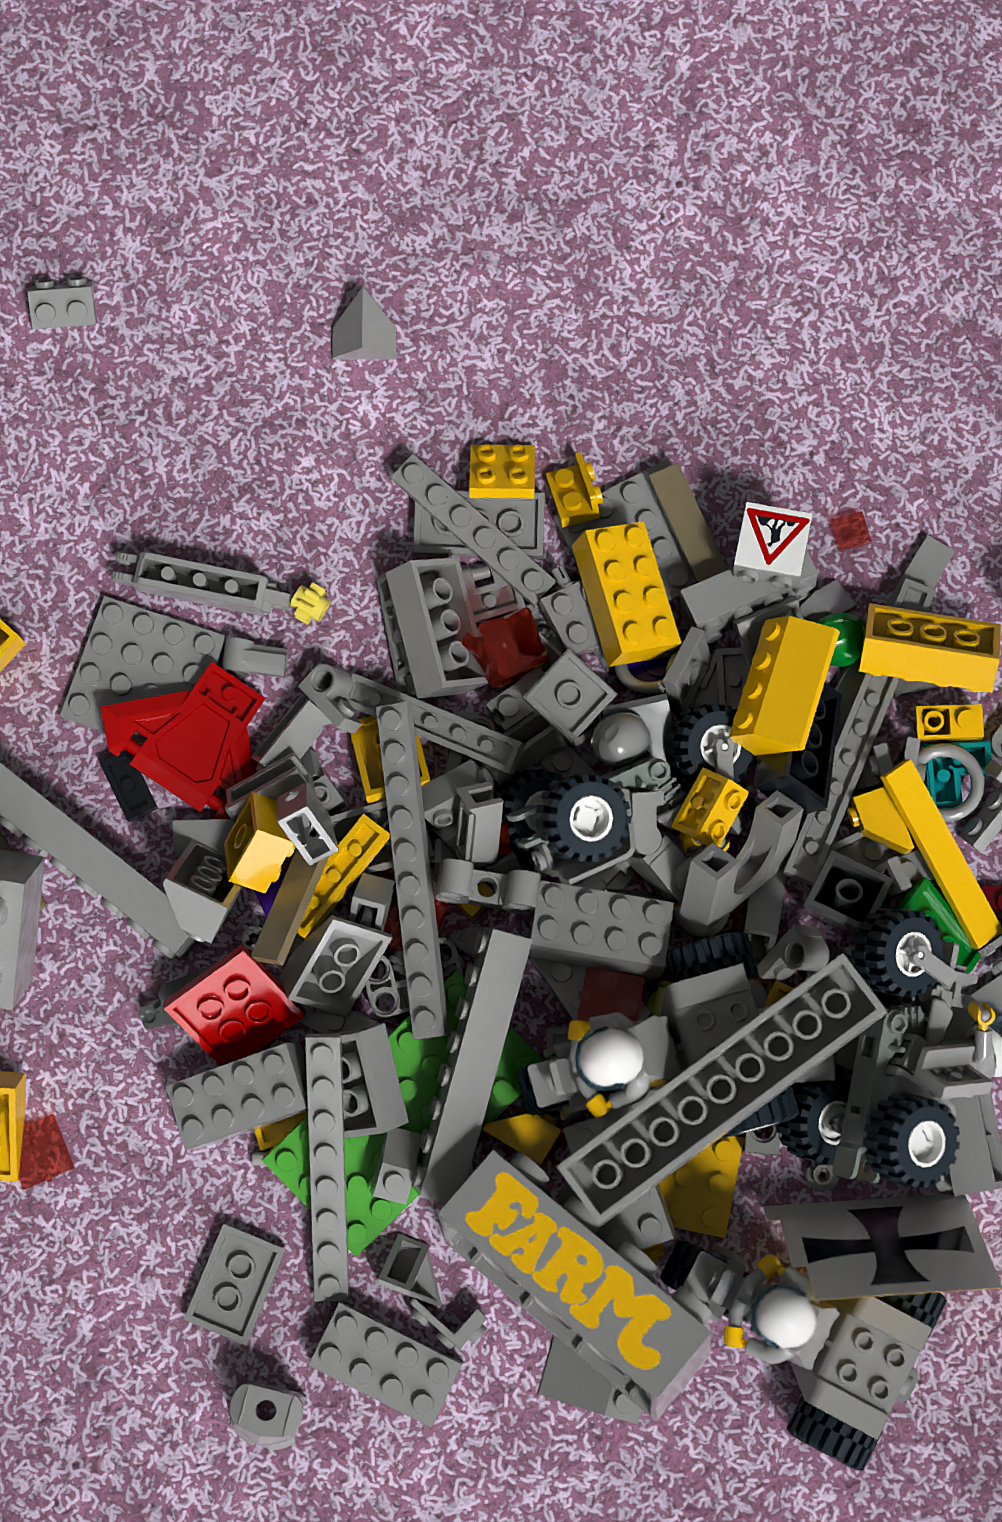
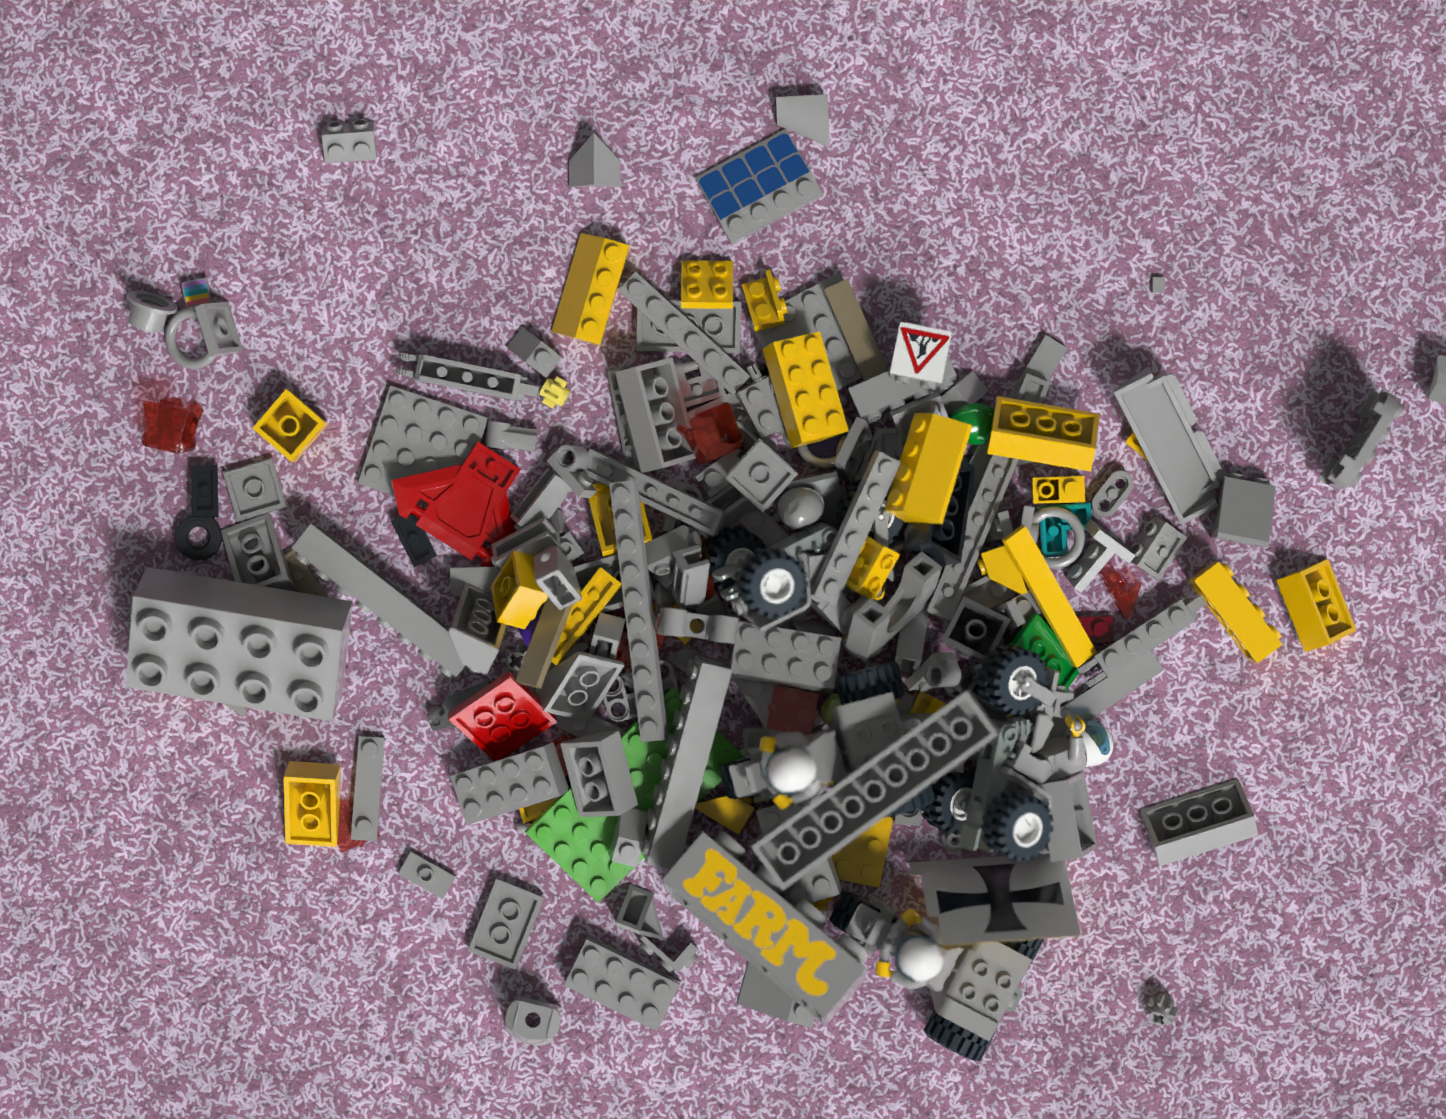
camera: 10 degrees left, 10 degrees up
(60, 1105) = (368, 788): none -> light grey plate
(133, 1219) = (427, 875): none -> light grey plate
(287, 556) = (535, 352): none -> light grey slope
(327, 1167) = (576, 838): light grey plate -> none
(358, 478) = (591, 289): none -> yellow slope
(568, 358) = (759, 187): none -> slope
(624, 272) = (805, 115): none -> light grey slope
(691, 758) = (855, 528): none -> light grey plate
(850, 531) = (985, 331): clear red tile -> none
(948, 1072) = (1048, 772): light grey bracket -> none

